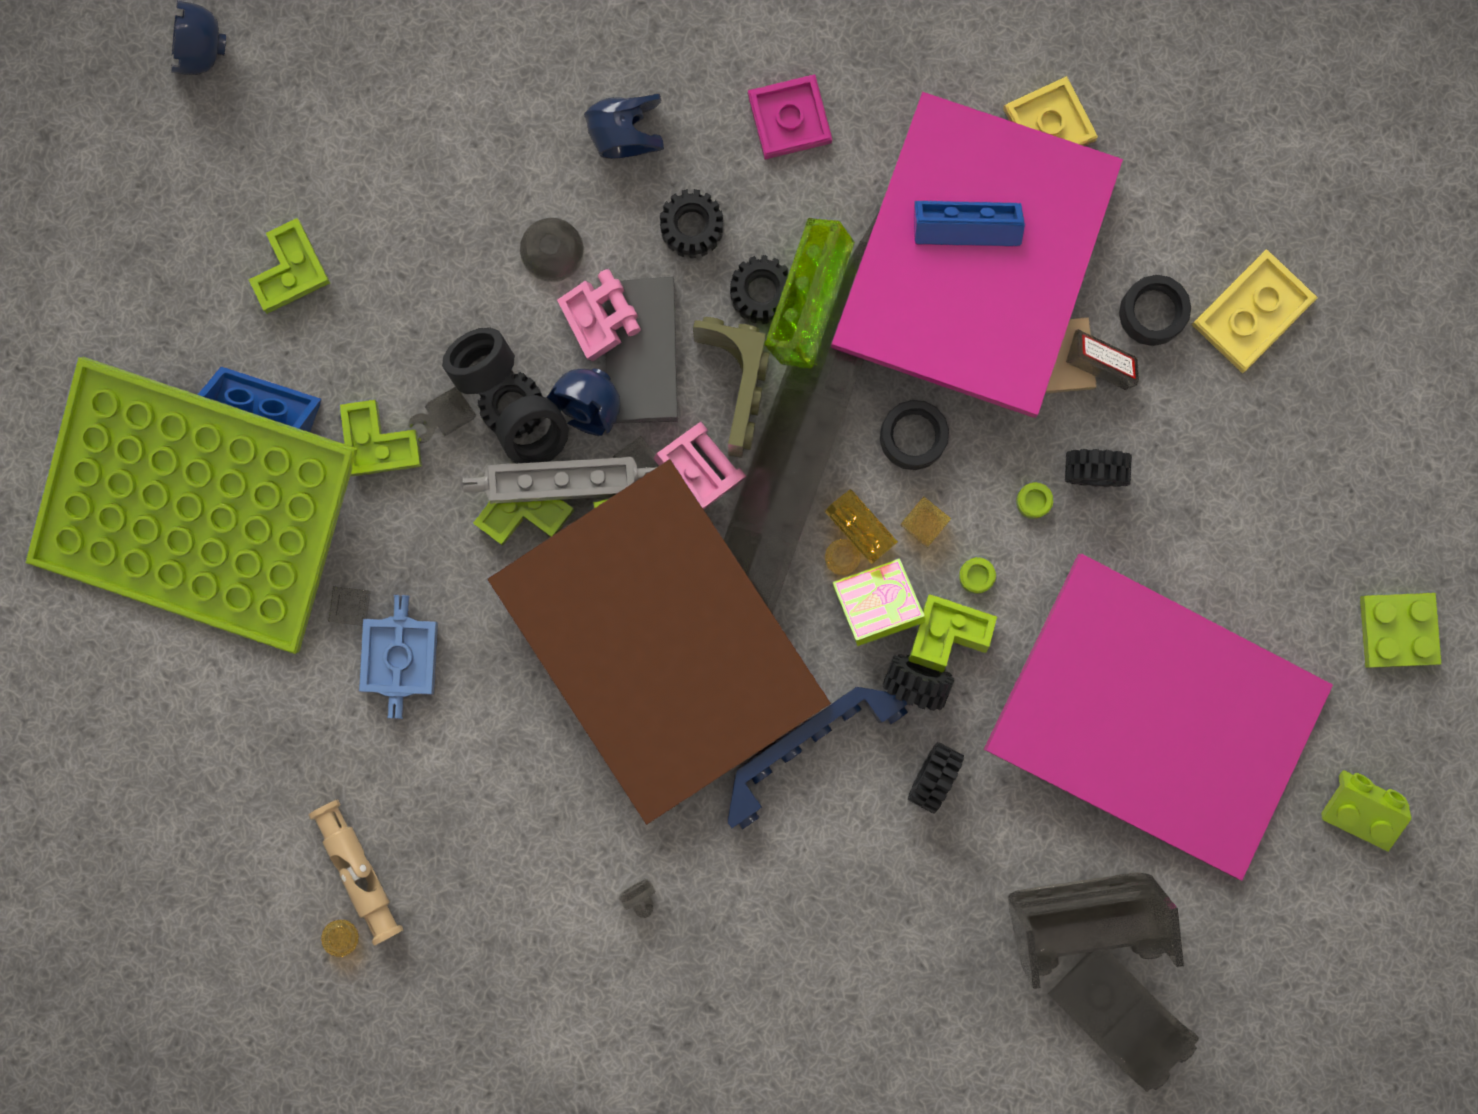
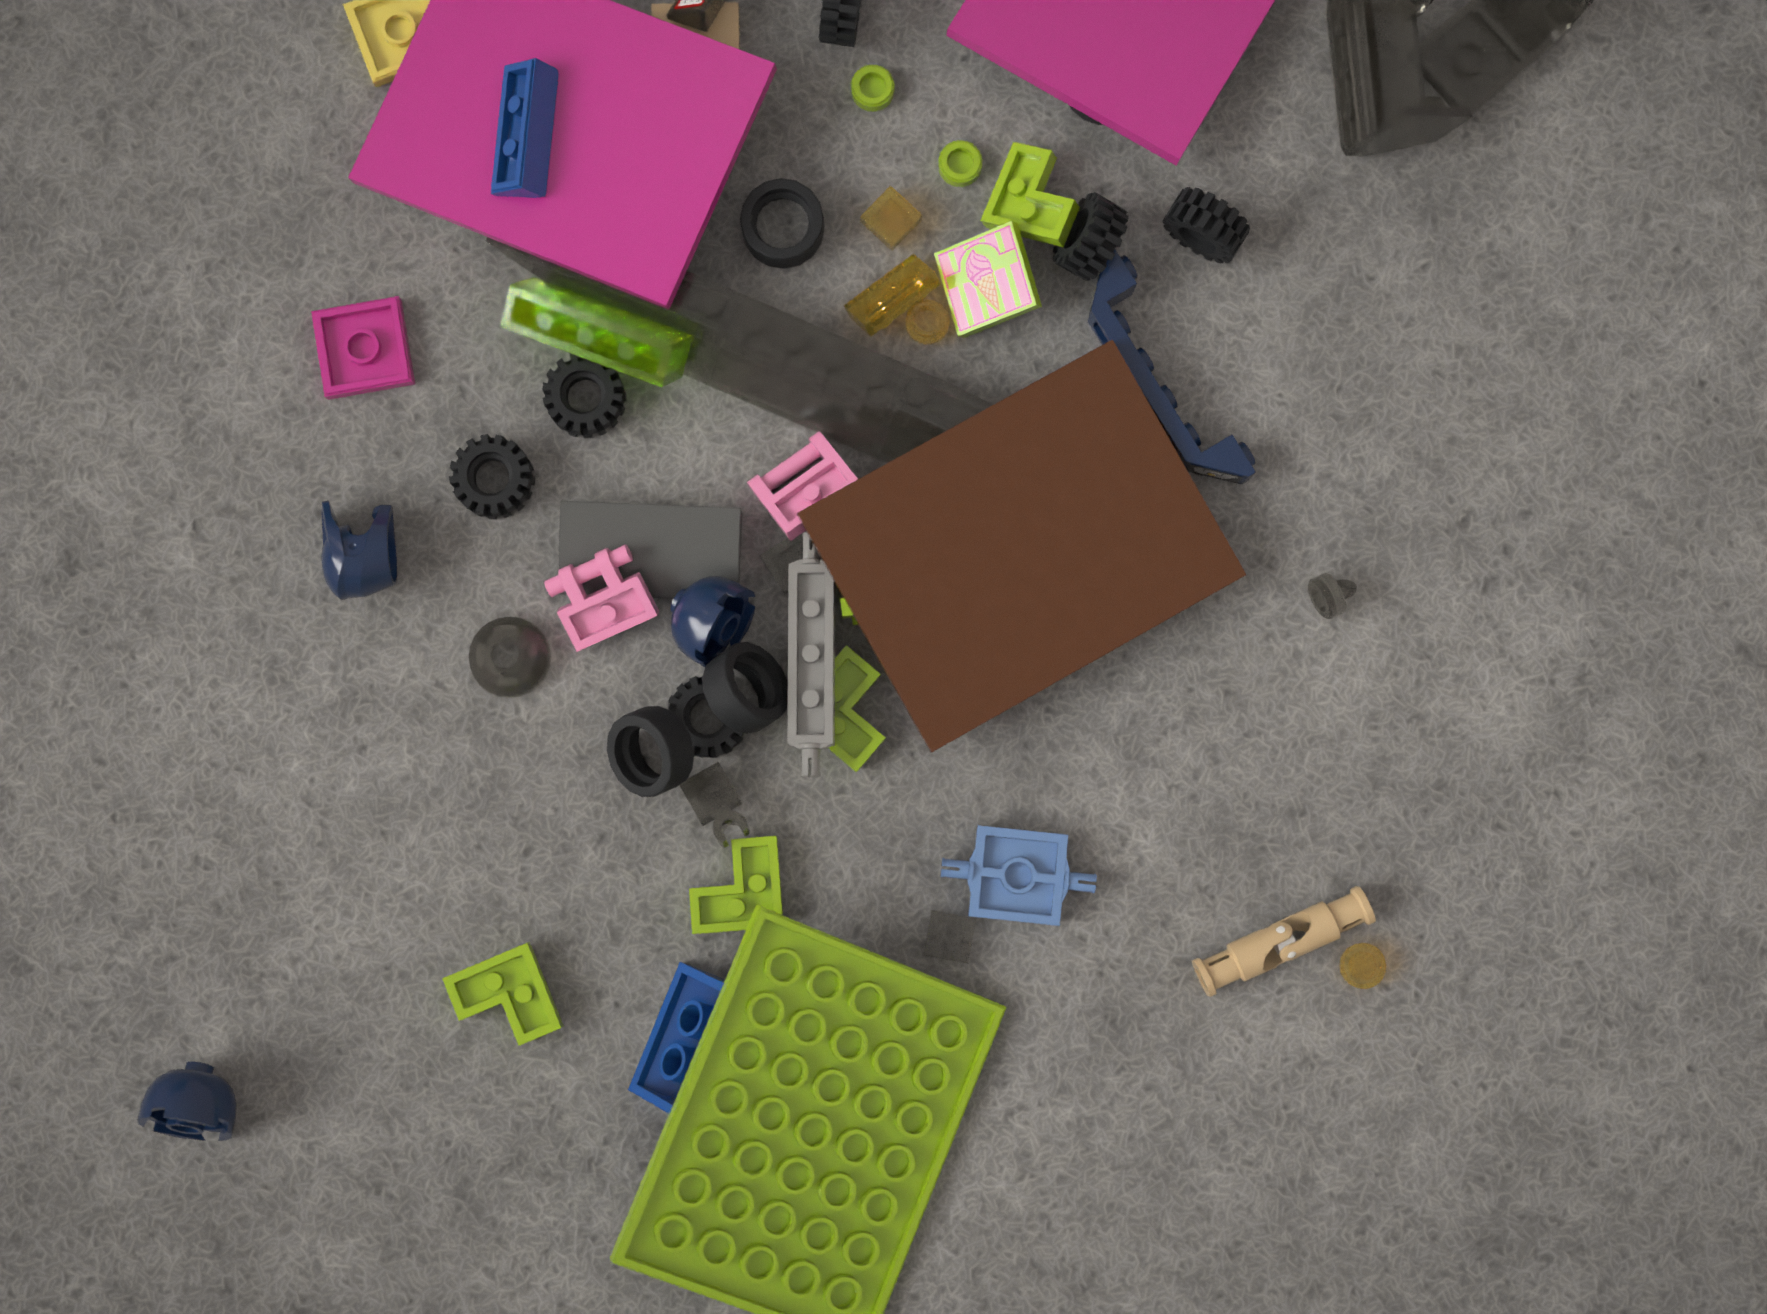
camera: 85 degrees left, 0 degrees up
(747, 347) = (679, 408): olive bracket -> none

